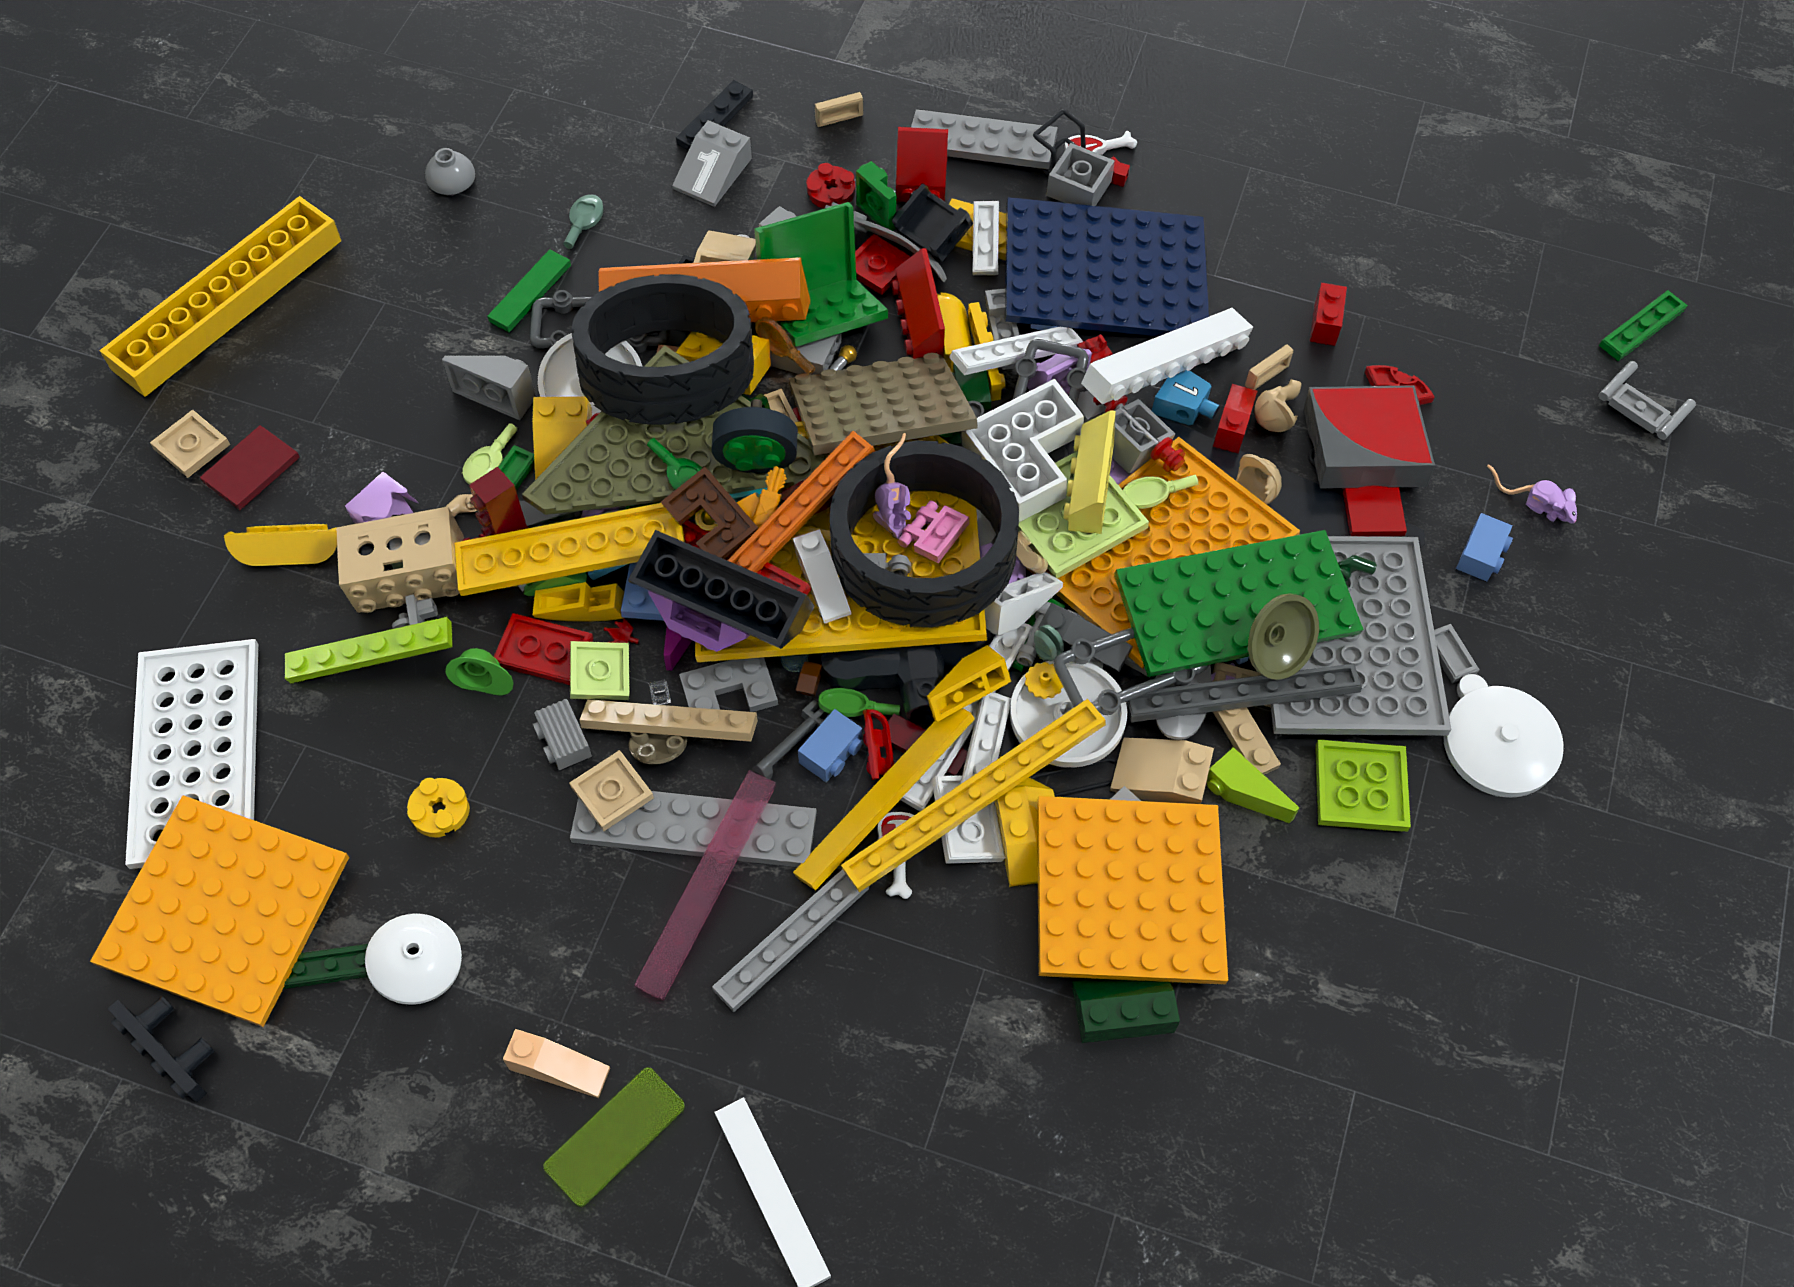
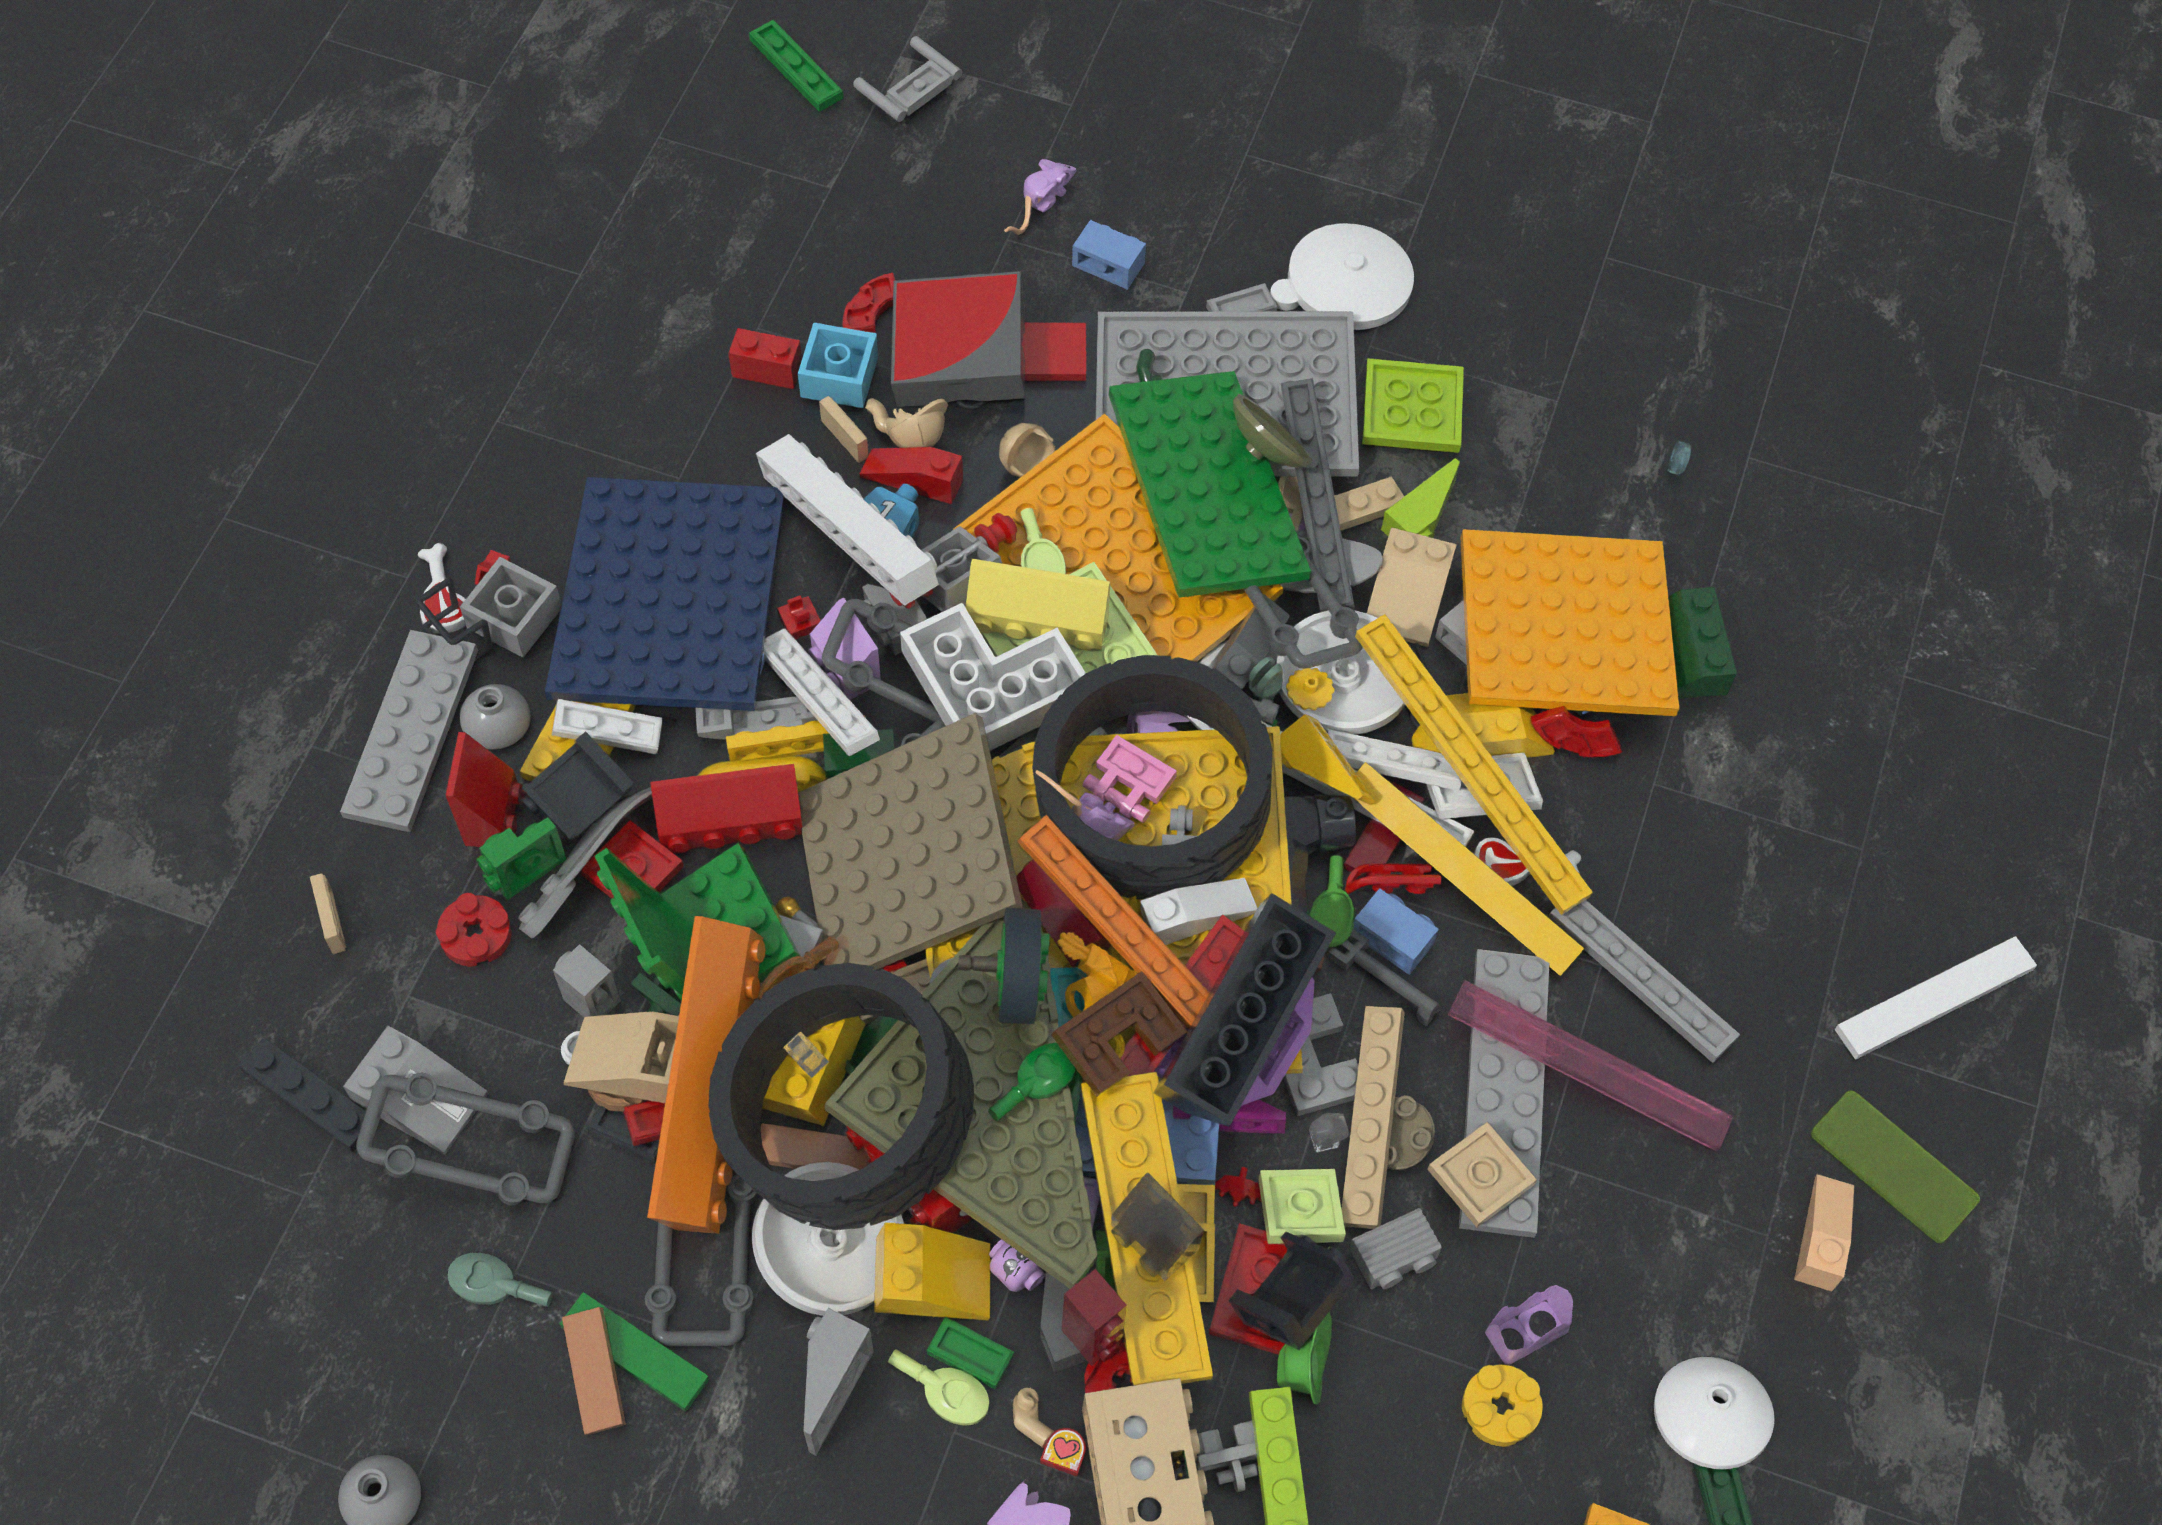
camera: 90 degrees left, 0 degrees up
(484, 801) = (1558, 1305): none -> lavender piece
(515, 267) = (593, 1371): none -> nougat tile
(519, 653) = (1295, 1292): none -> black panel
(557, 541) = (1156, 1228): none -> clear smoke slope
(689, 220) = (421, 1090): none -> dark grey bar
(708, 340) = (806, 1054): none -> clear piece
(995, 180) = (495, 725): none -> light grey piece
(1023, 881) = (1576, 735): none -> red tile
(1327, 356) = (838, 364): none -> medium azure slope
(1337, 1016) = (1679, 458): none -> clear light blue tile

